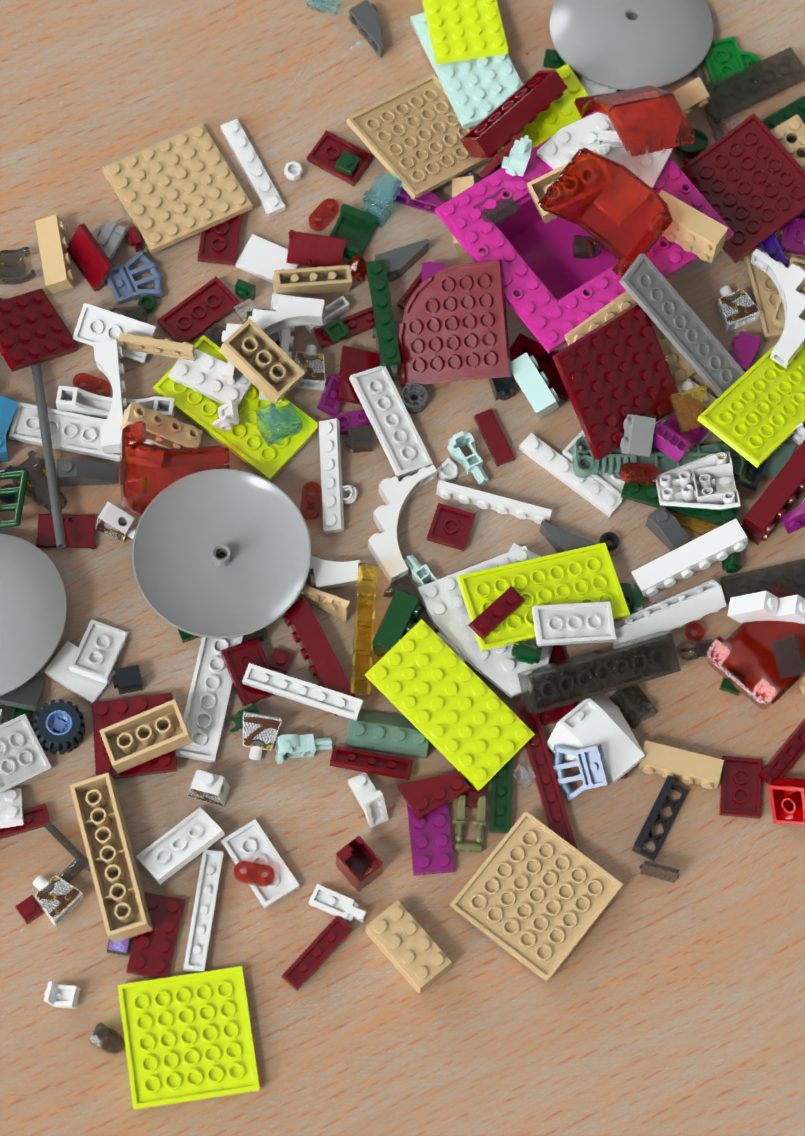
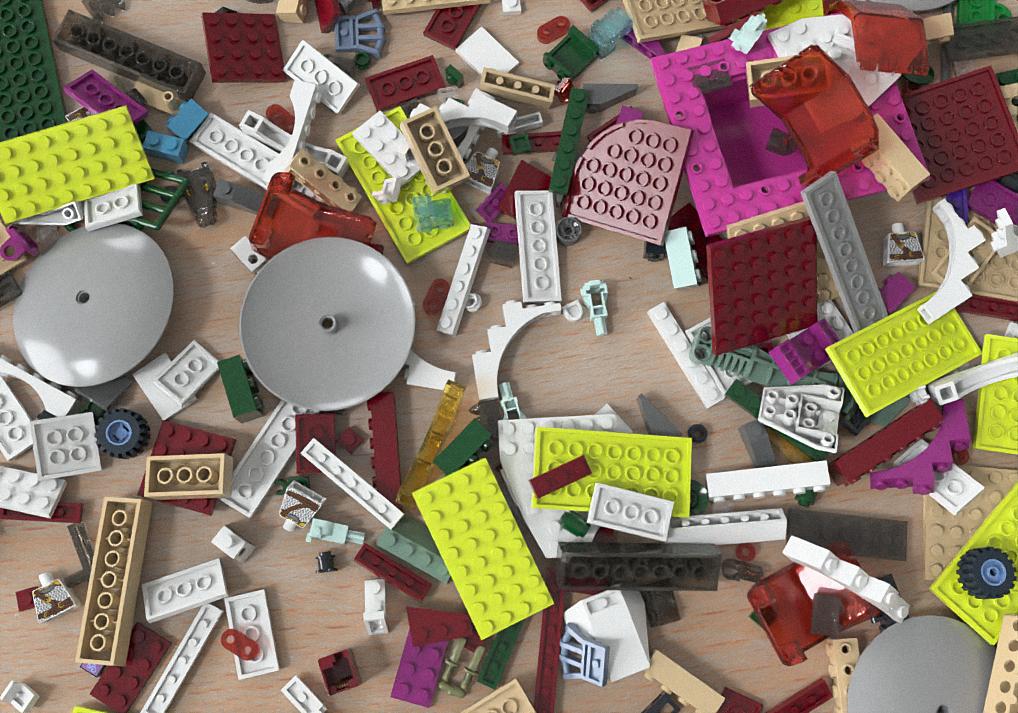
camera: 20 degrees right, 10 degrees up
(48, 456) = (213, 174): dark grey piece -> none
(78, 532) = (210, 251): dark red door -> none
(127, 679) = (203, 410): black brick -> none
(157, 346) = (345, 100): tan plate -> none
(159, 645) = (241, 389): none -> dark green brick
(304, 776) = (325, 562): none -> black brick
(315, 249) = (533, 60): dark red door -> none
(326, 602) = (410, 399): tan wing -> none
(451, 527) = (555, 367): dark red plate -> none
(490, 501) = (597, 354): white plate -> none
(494, 437) = (628, 294): dark red tile -> none
(524, 775) = (530, 638): clear plate -> none
(637, 473) = (748, 380): clear red plate -> none
(638, 435) = (762, 345): light grey brick -> none
(688, 407) = (821, 333): clear yellow wing -> none

